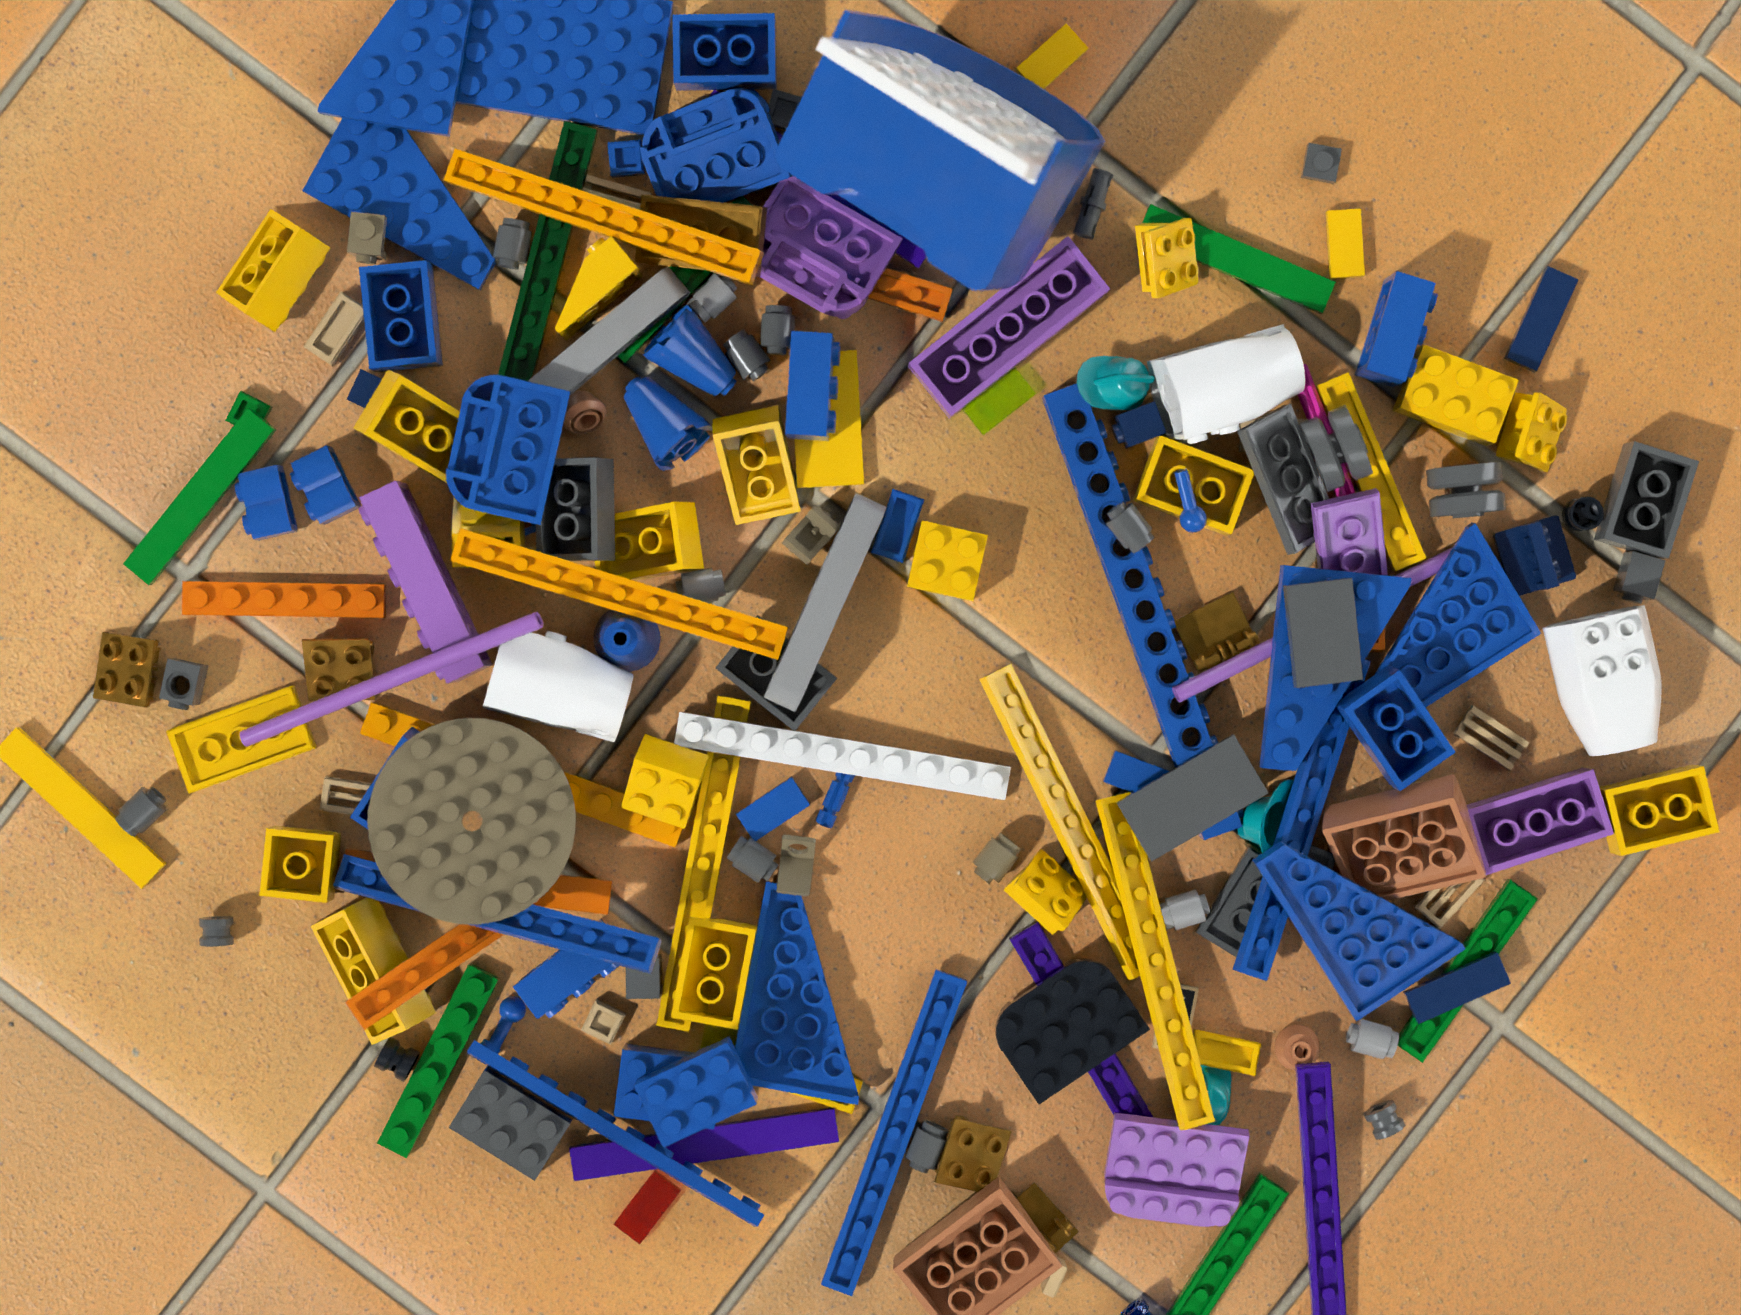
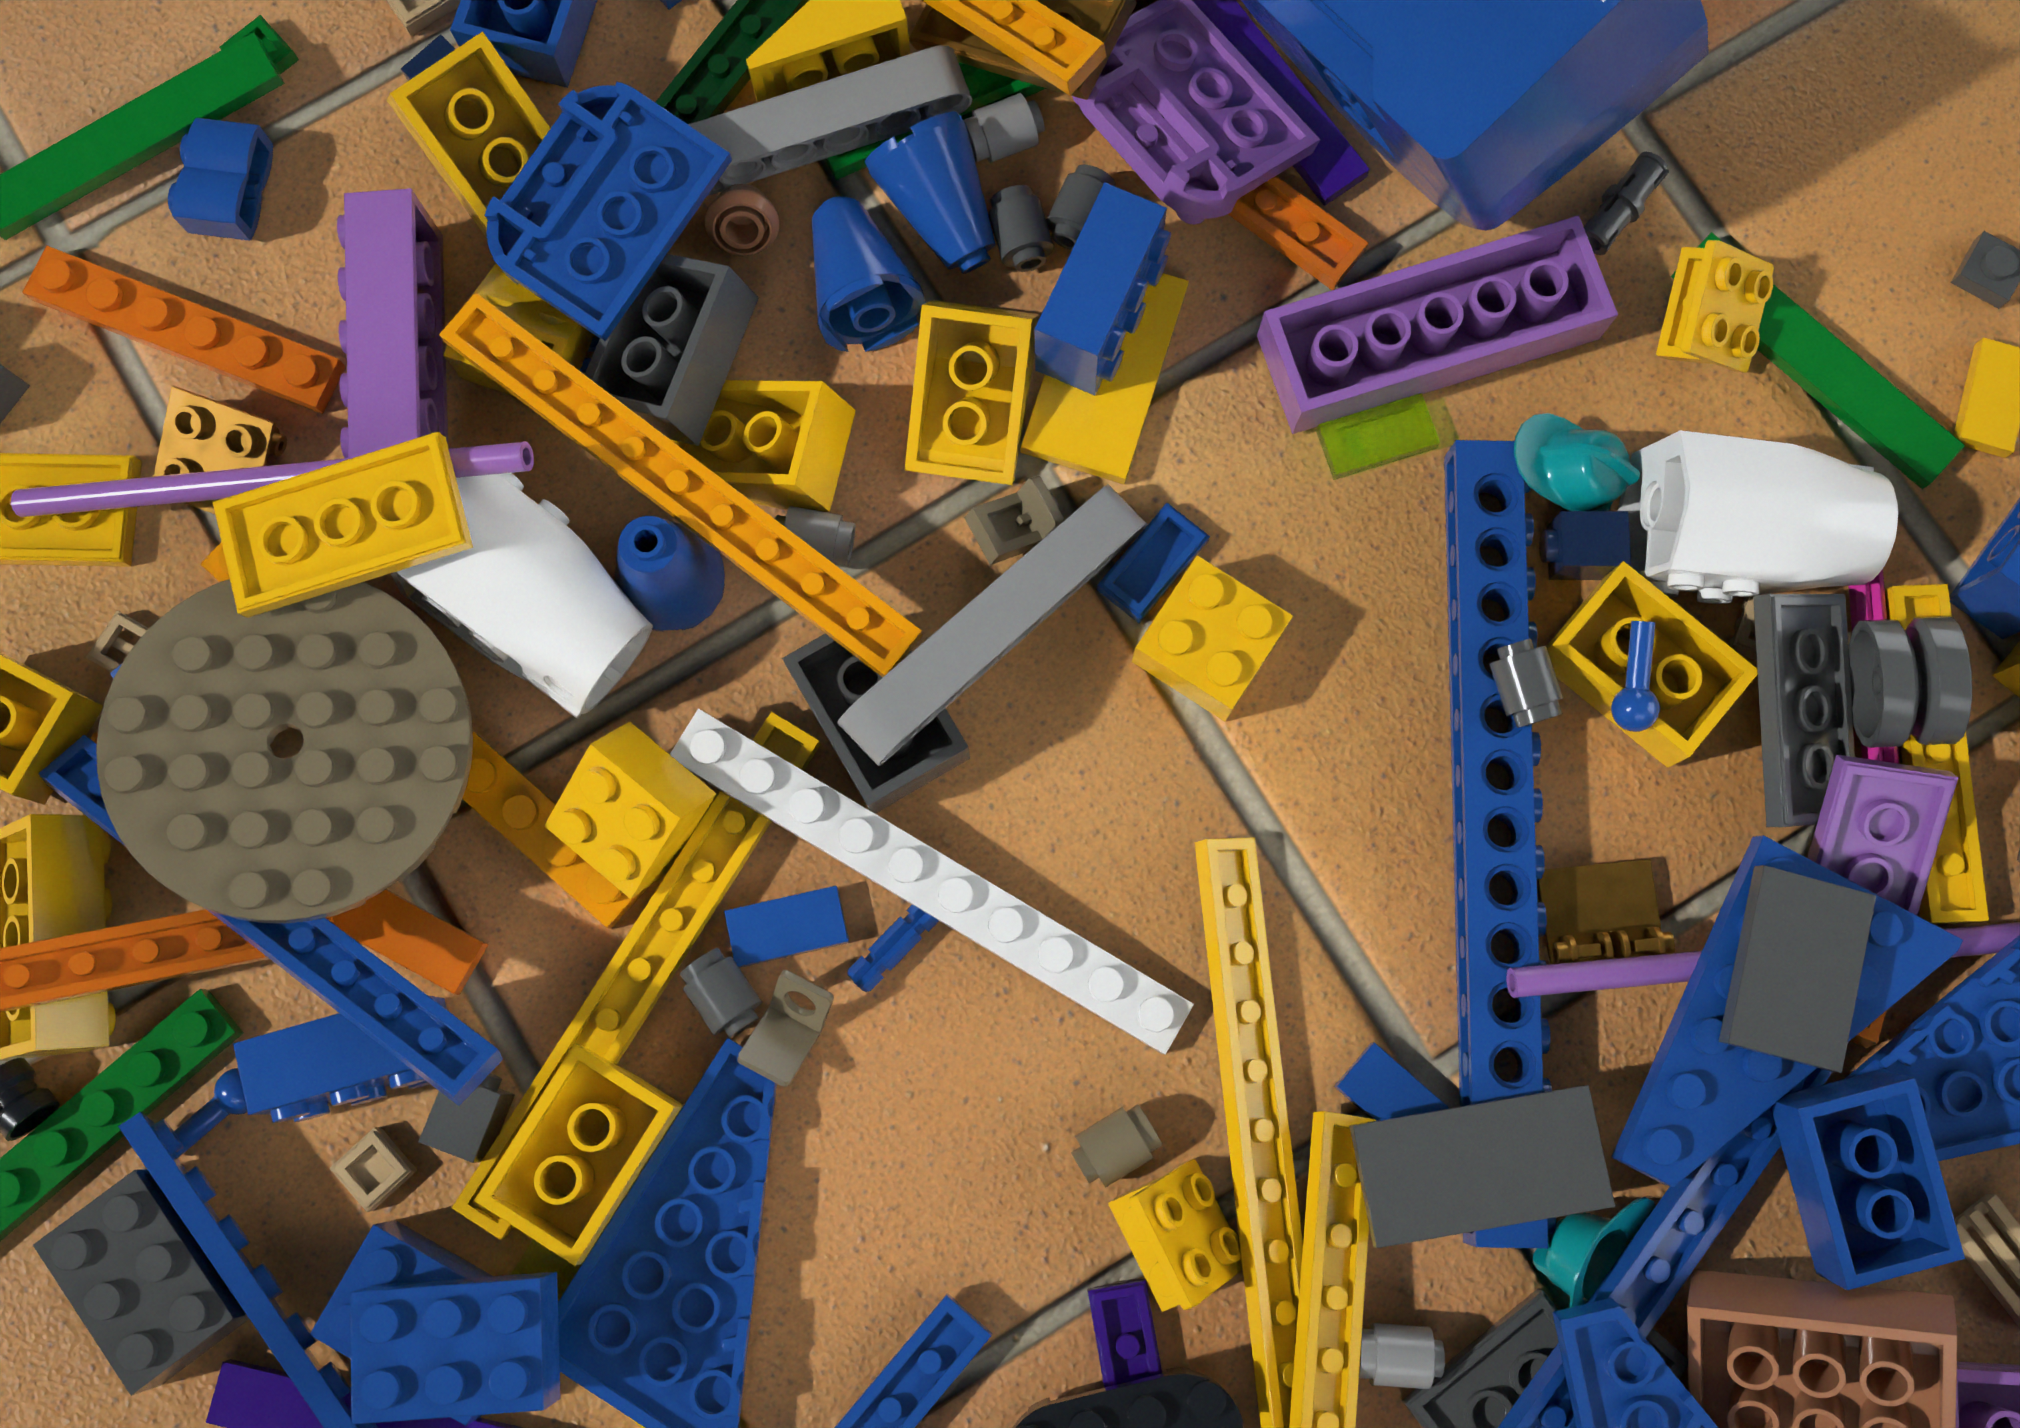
camera: 20 degrees right, 10 degrees down
(325, 485) = (313, 175): blue brick -> none
(455, 695) = (342, 524): none -> yellow tile

